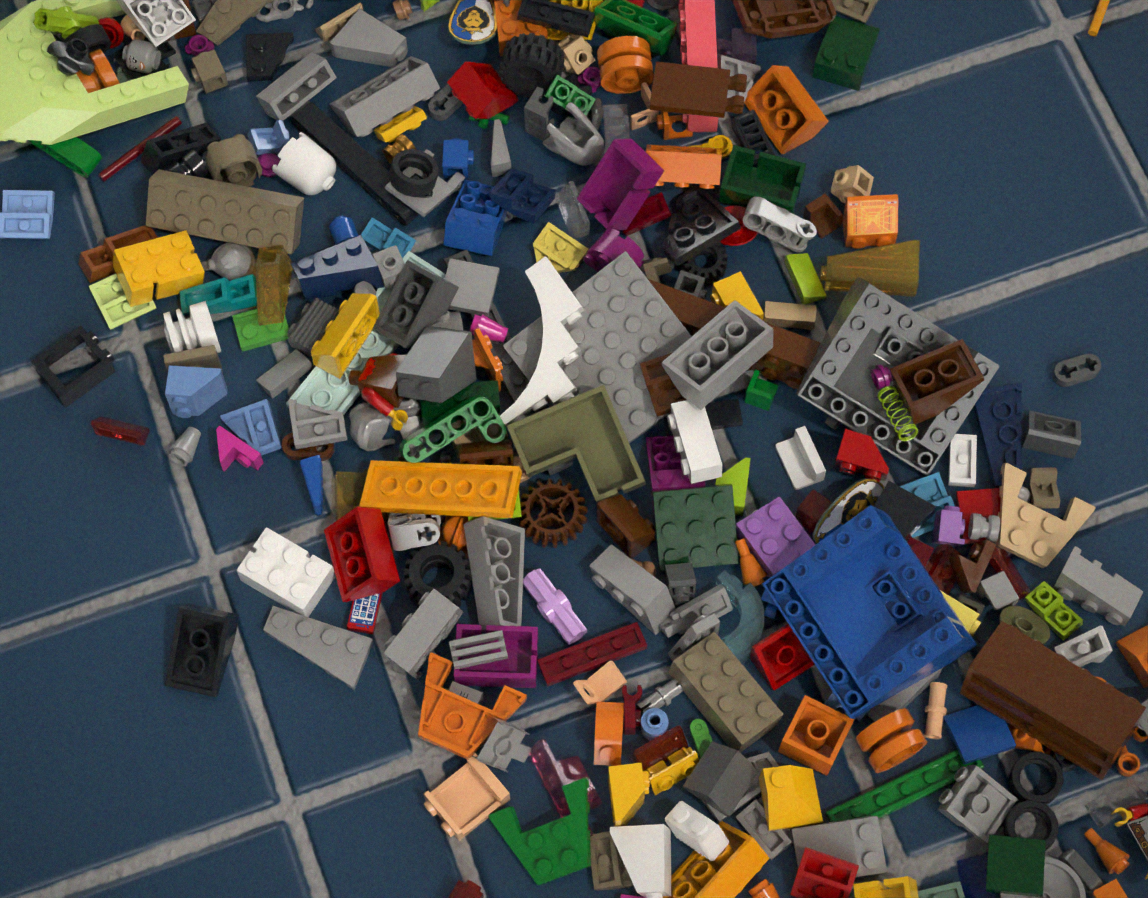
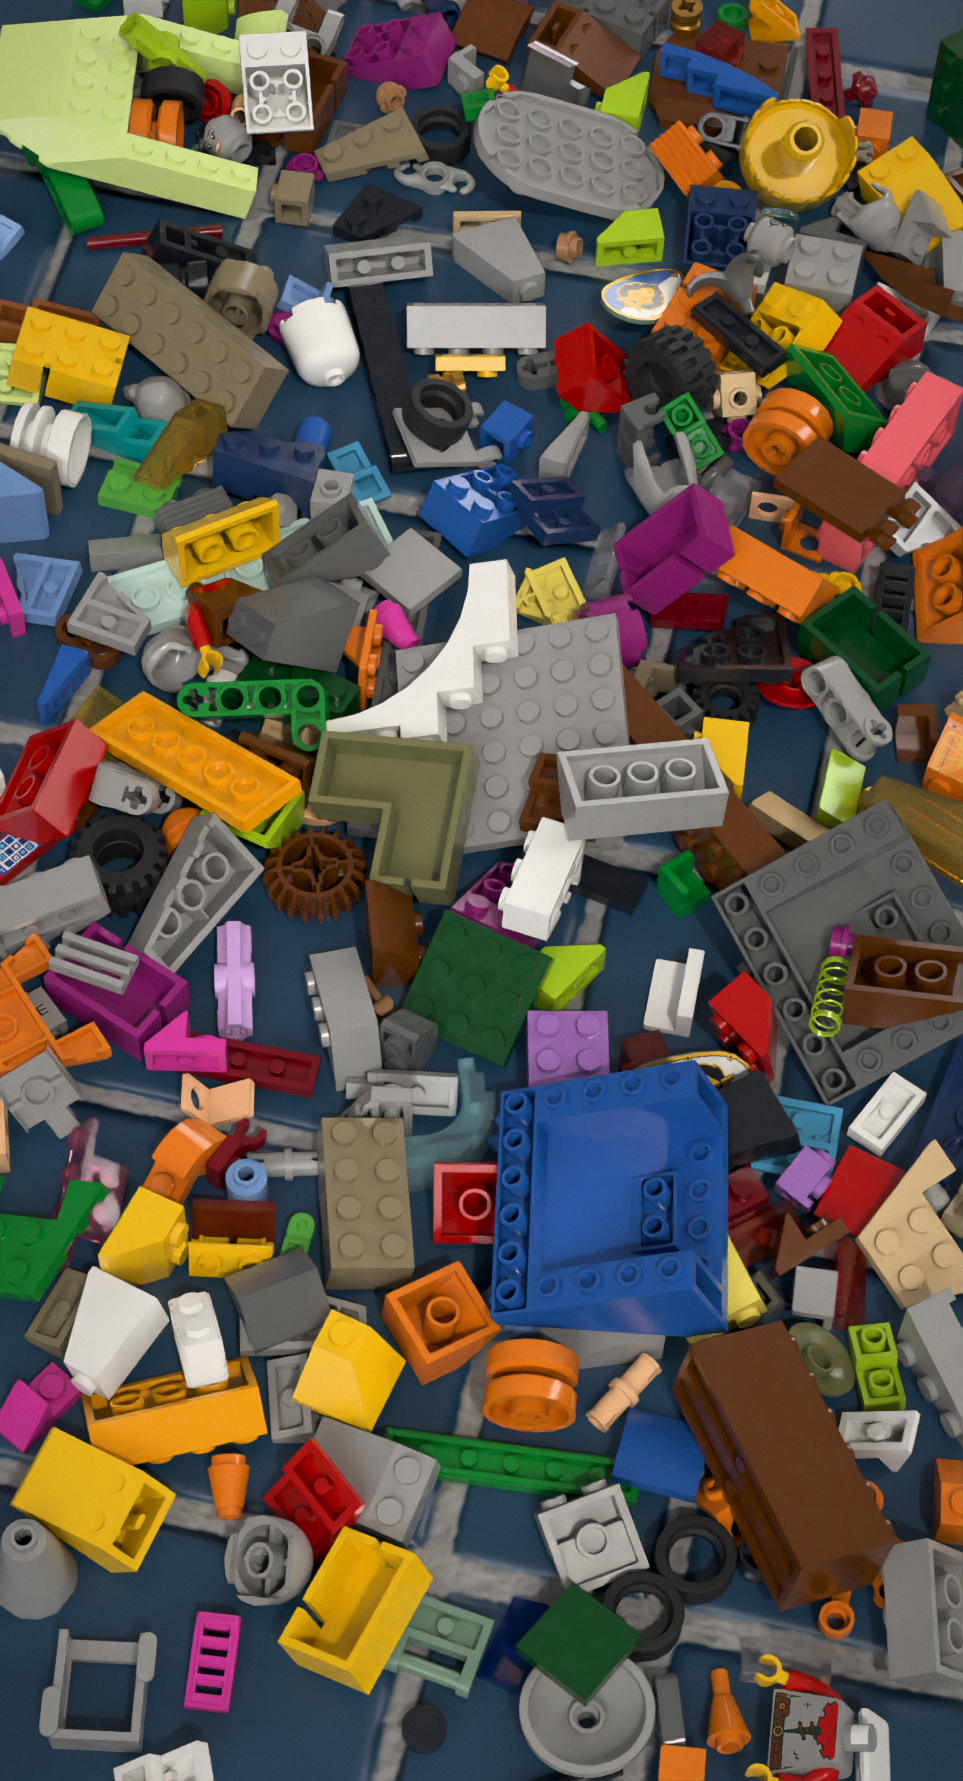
camera: 30 degrees right, 10 degrees down
(72, 56) = (137, 84): black plate -> none
(560, 671) = (175, 1051): none -> dark pink slope
(750, 567) = (512, 1071): orange cone -> none
(984, 527) = (850, 1203): light grey wheel -> none

